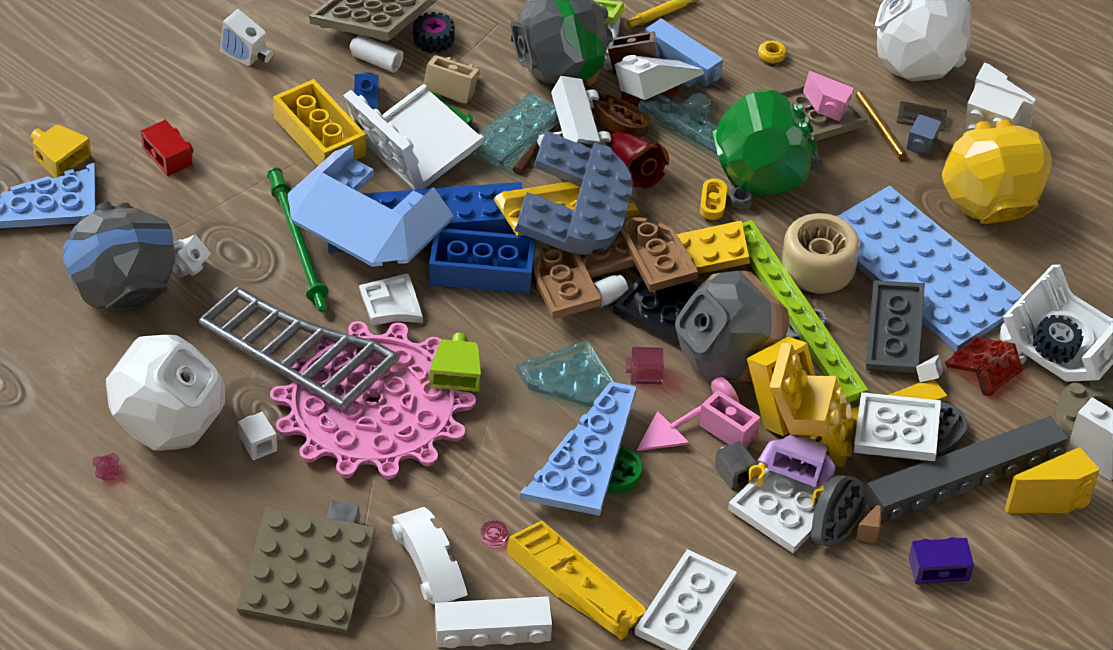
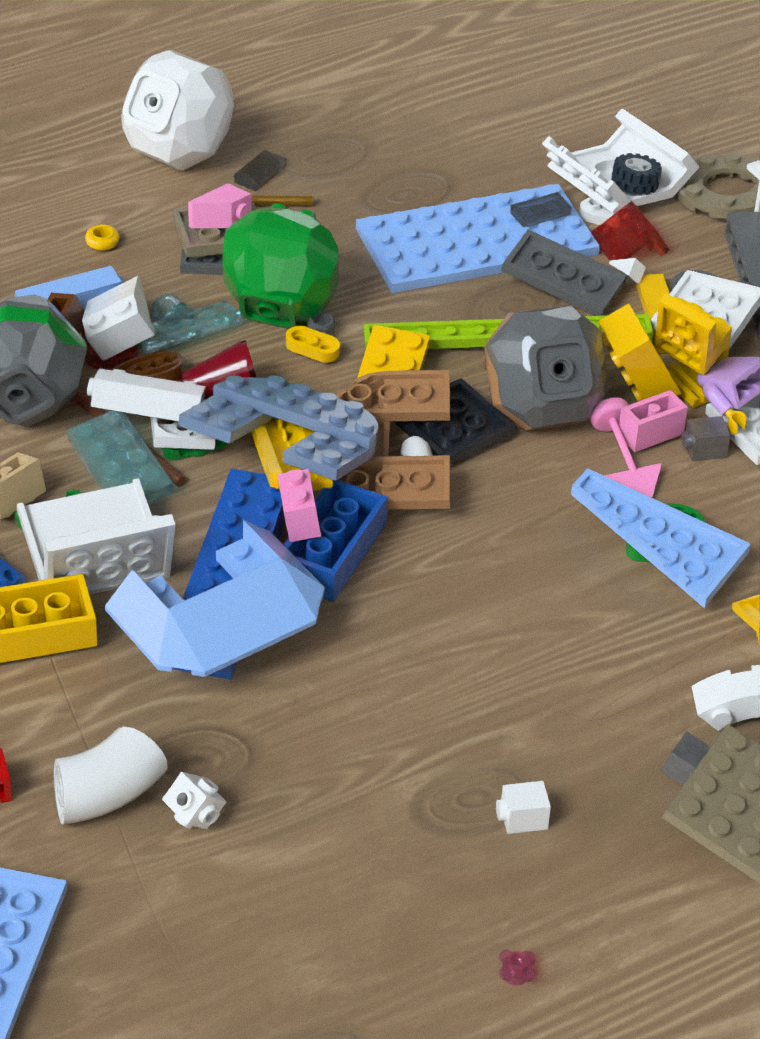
camera: 70 degrees left, 5 degrees down
(119, 257) = (201, 848): dark grey rock -> none
(165, 392) = (467, 849): white rock -> none
(185, 202) = (107, 775): none -> white brick
(280, 189) = (111, 690): green bar -> none
(295, 324) = (388, 705): flat silver bar -> none
(370, 433) = (551, 686): bright pink plate -> none
(391, 300) = (350, 638): white plate -> none
(456, 365) = (495, 597): lime torso -> none
(480, 219) = (299, 505): none -> bright pink brick
(494, 534) = (734, 648): clear pink tile -> none
(567, 374) = (531, 523): clear light blue plate -> none
(645, 365) = (542, 461): clear pink brick -> none
(821, 253) = (447, 283): tan wheel -> none
(923, 135) = (297, 173): sand blue brick -> none
(972, 291) = (540, 209): none -> clear smoke tile
(996, 100) = (298, 108): white piece -> none
(997, 171) = (405, 131): yellow rock -> none

